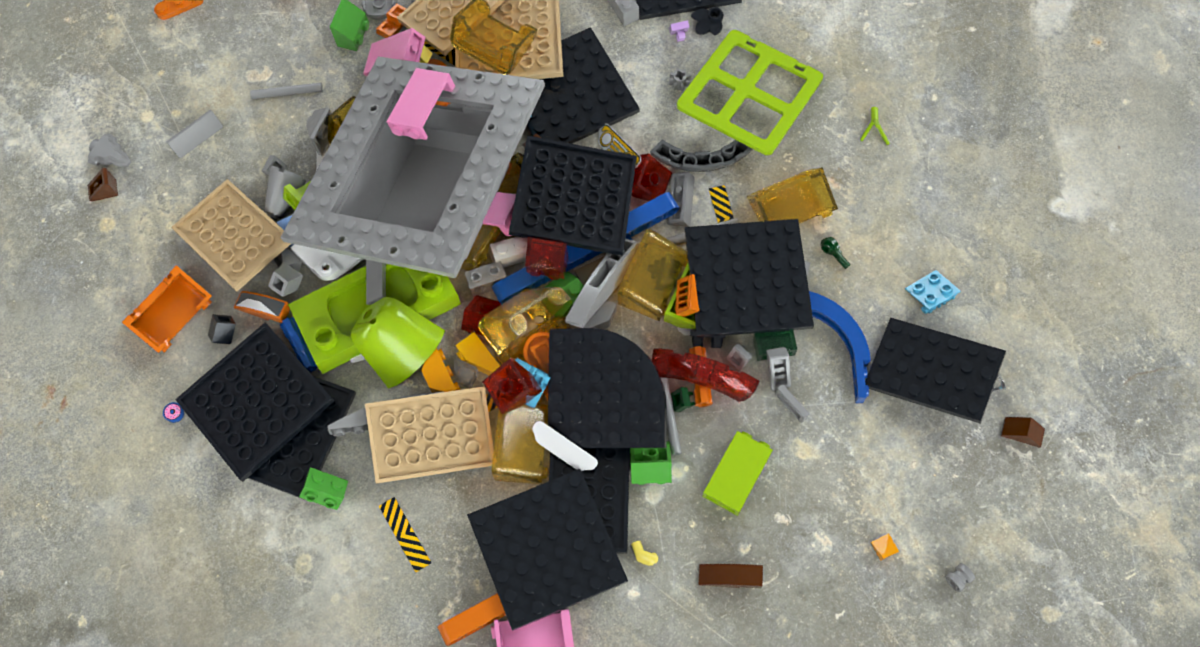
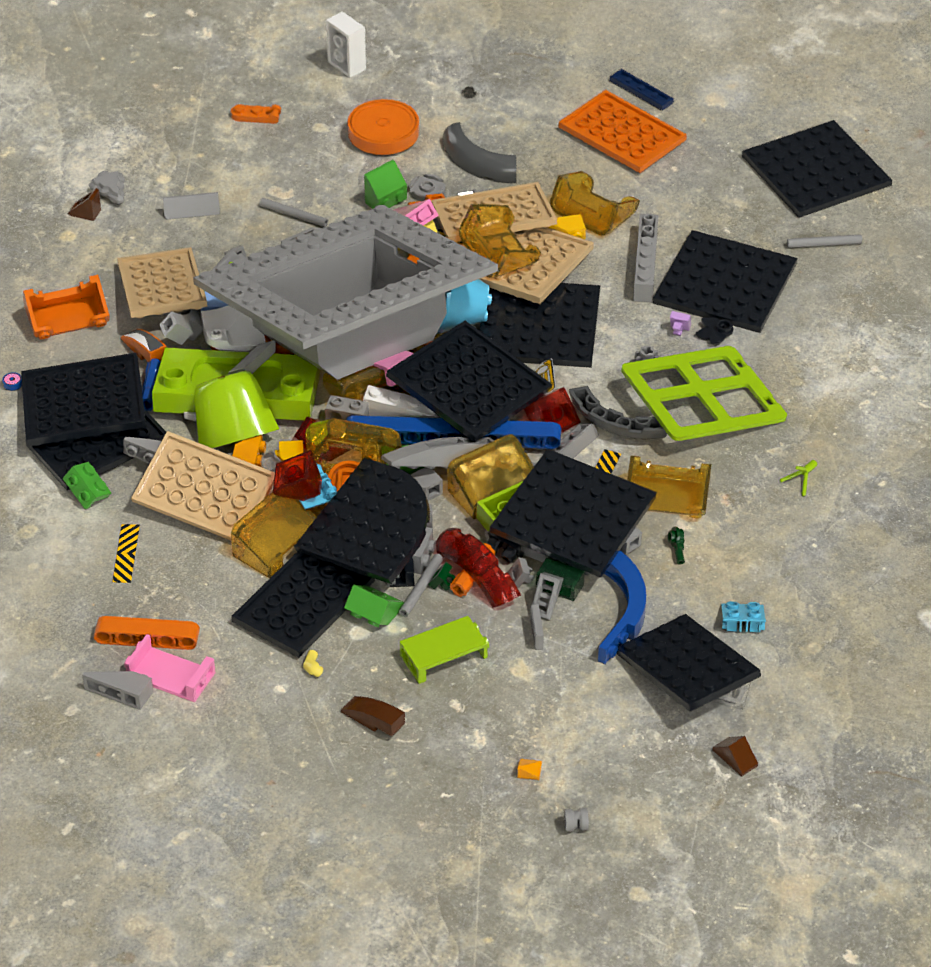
camera: 30 degrees right, 25 degrees down
(221, 329) = (98, 344): black panel -> none
(417, 102) = (359, 239): bright pink panel -> none
(546, 258) = (406, 410): clear red slope -> none
(547, 549) = (232, 611): black plate -> none
(563, 447) = (306, 549): white sticker -> none
(692, 299) = (502, 498): orange slope -> none

